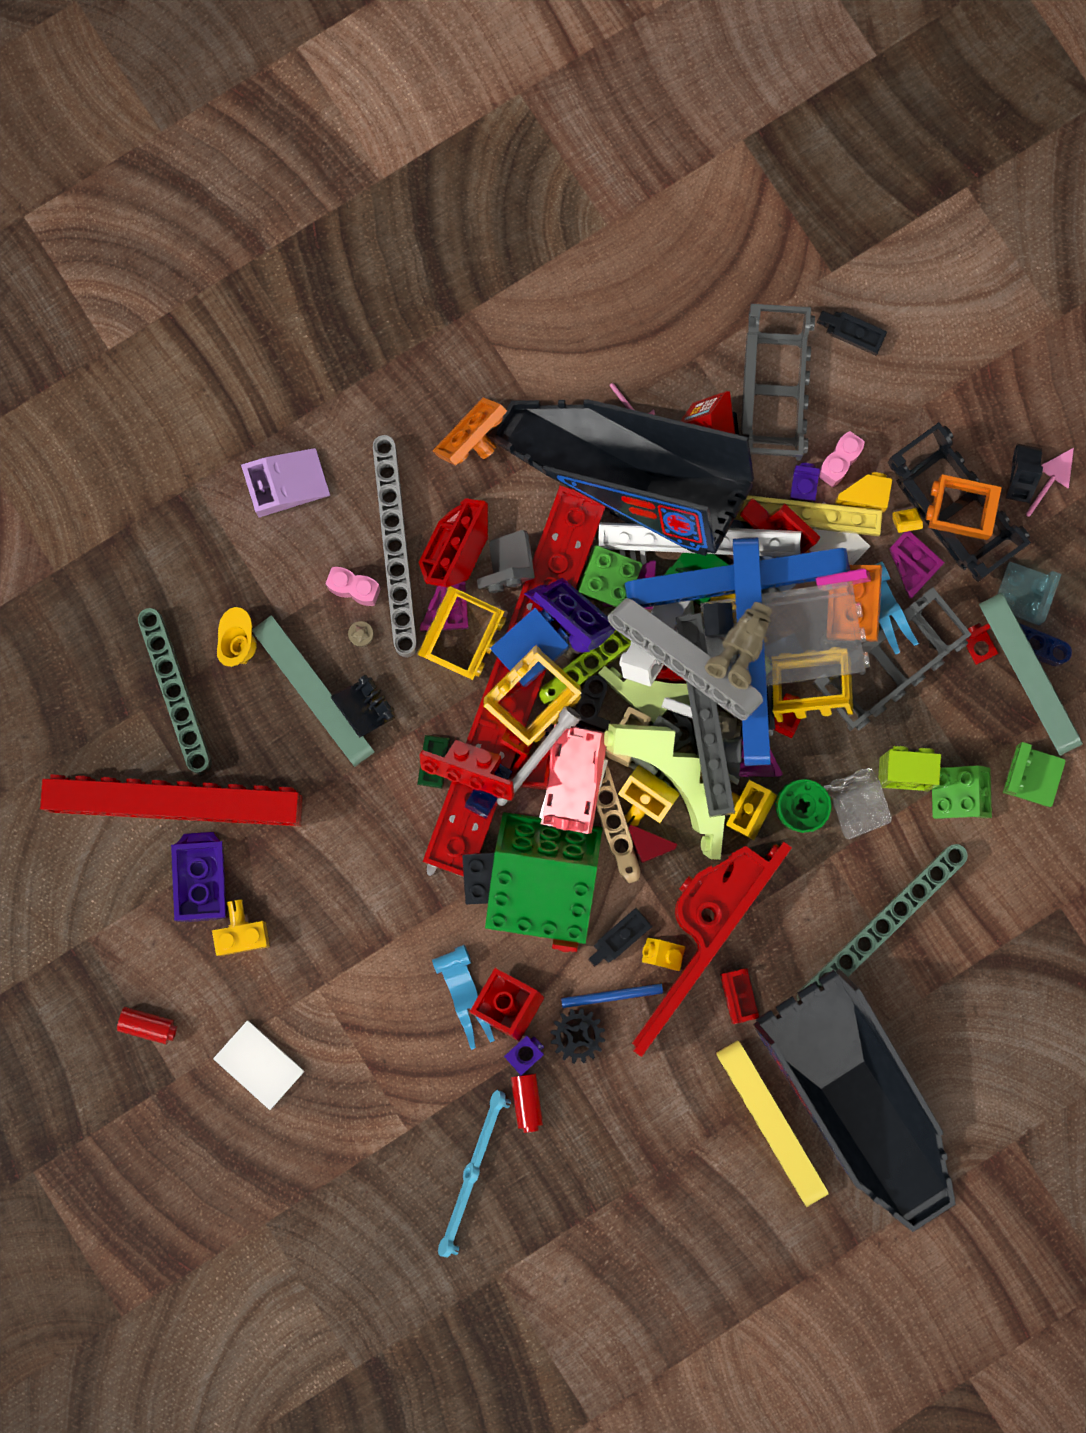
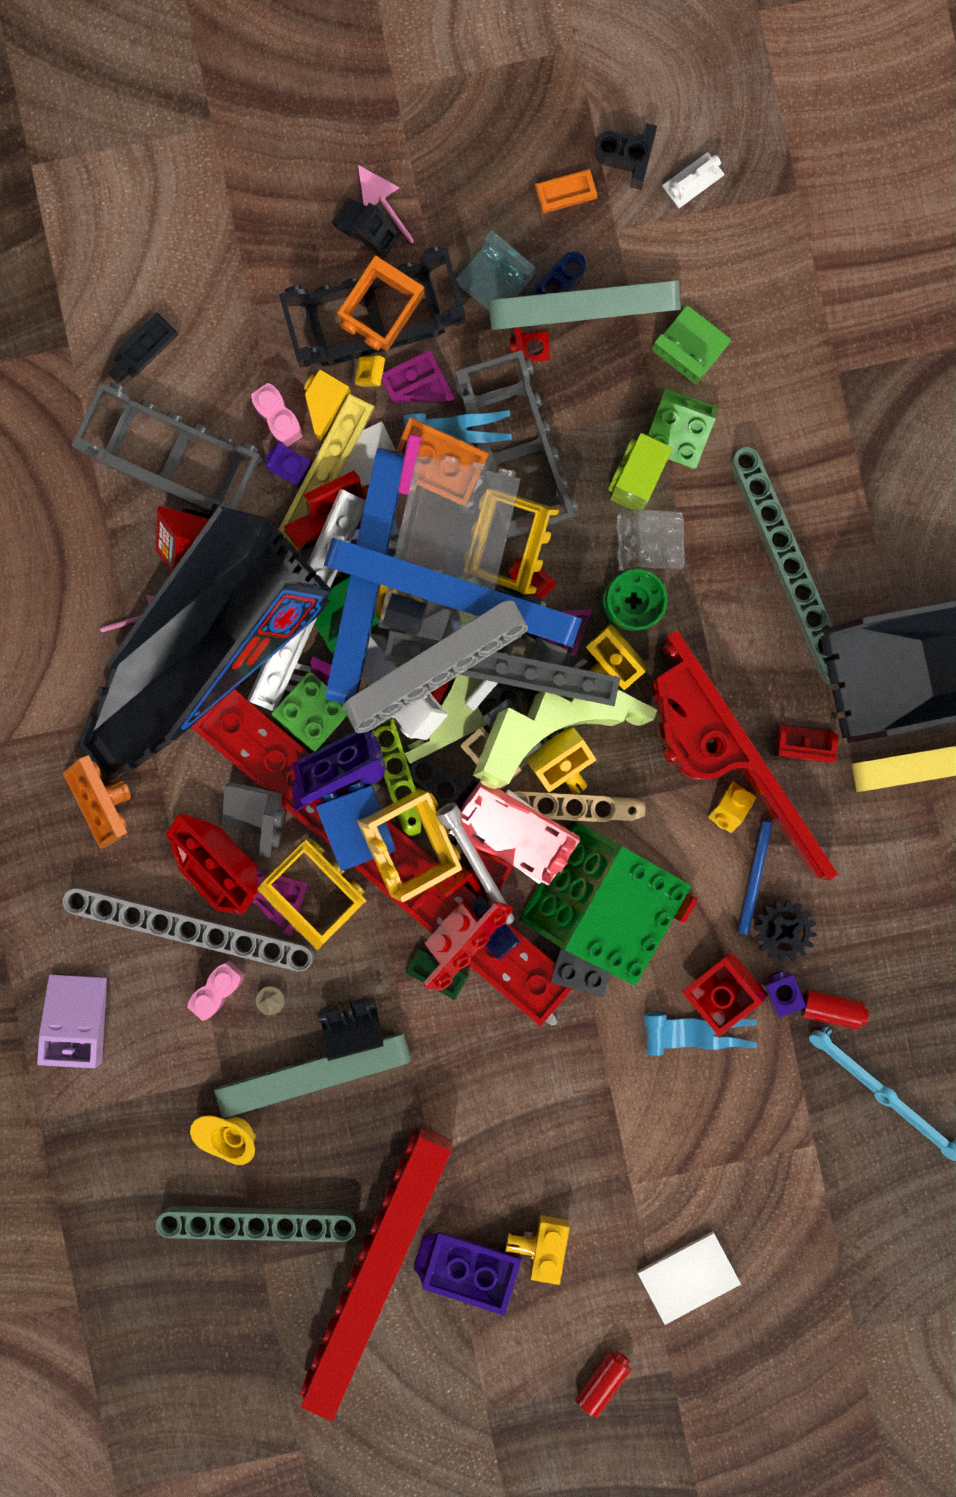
camera: 70 degrees left, 5 degrees up
(620, 937) = (698, 846): black hinge -> none
(649, 845) = (613, 778): dark red slope -> none
(744, 640) = (443, 594): dark tan piece -> none

